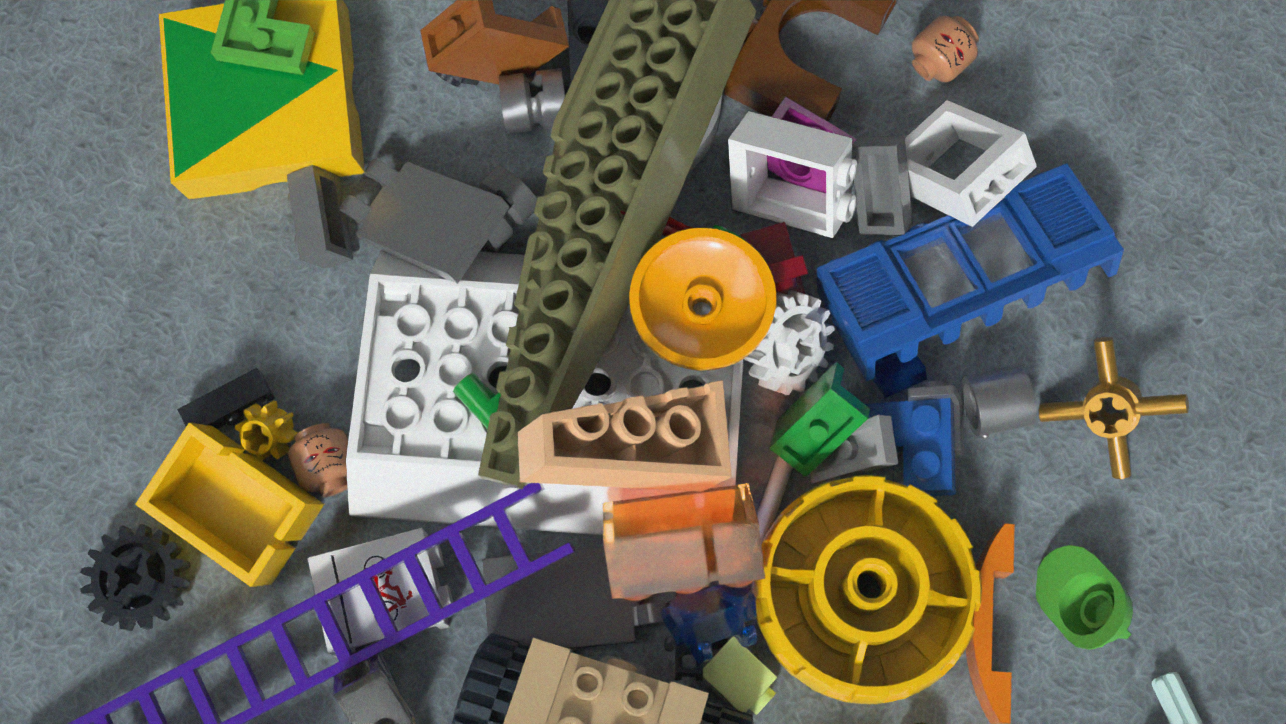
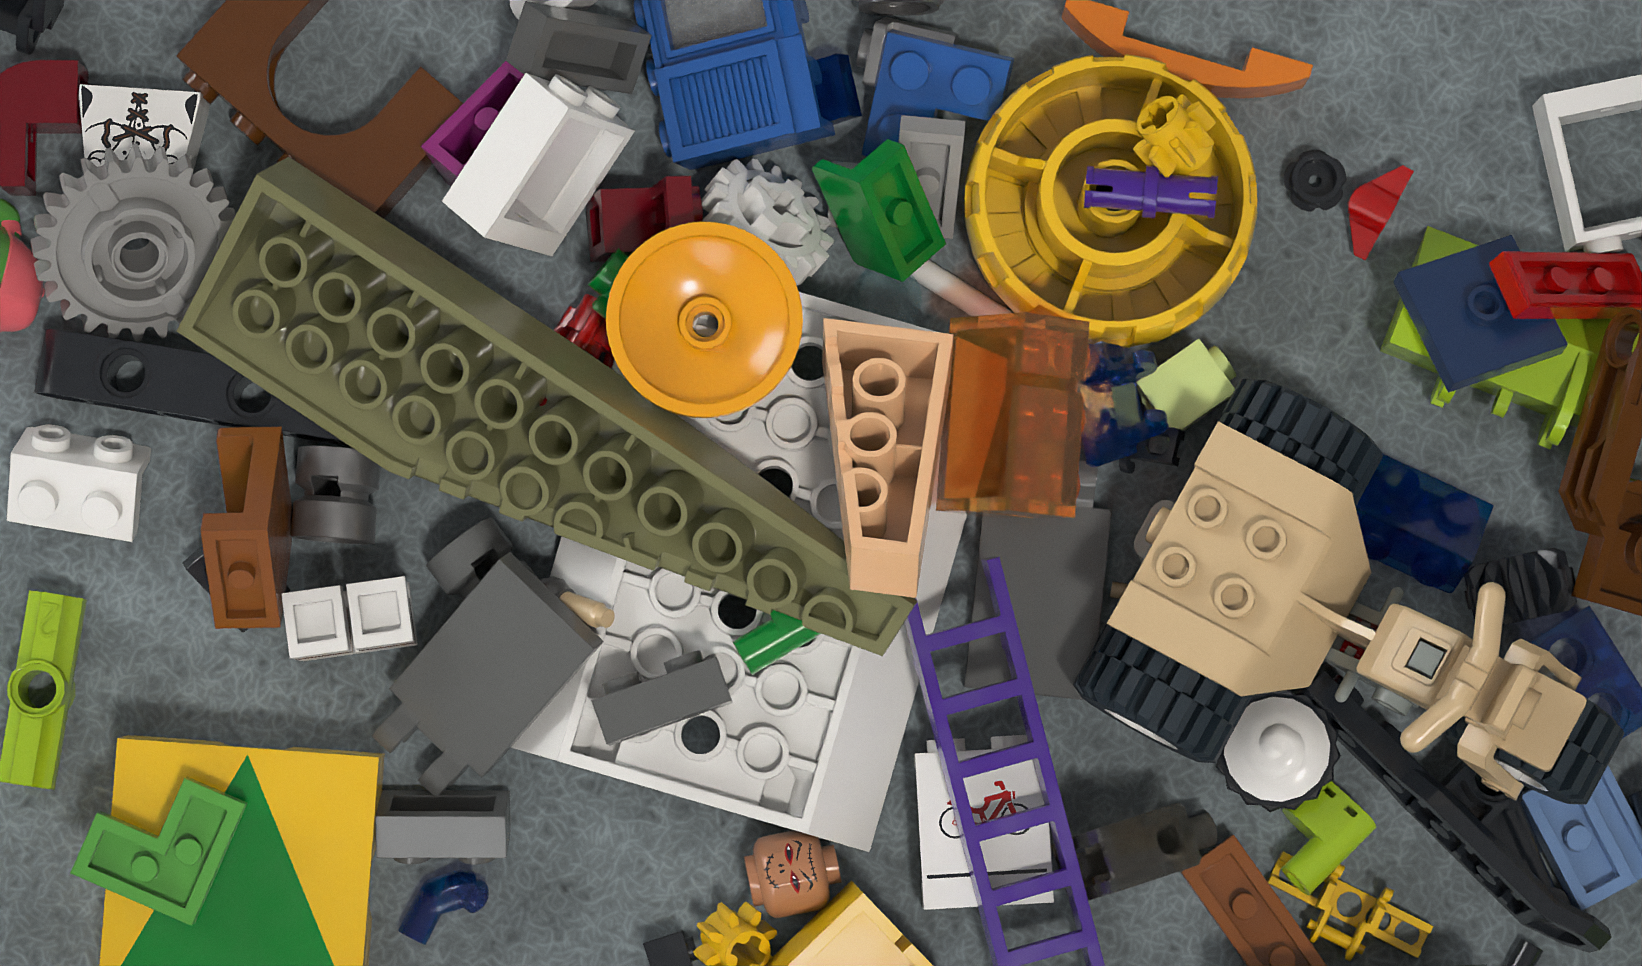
camera: 80 degrees left, 10 degrees up
(271, 228) = (440, 896): none -> clear blue arm
(413, 315) = (642, 707): none -> dark grey piece
(446, 120) = (349, 622): none -> white hips
(486, 258) = (588, 610): none -> tan piece
(878, 608) = (1150, 192): none -> dark purple pin
(925, 616) = (1174, 135): none -> yellow gear

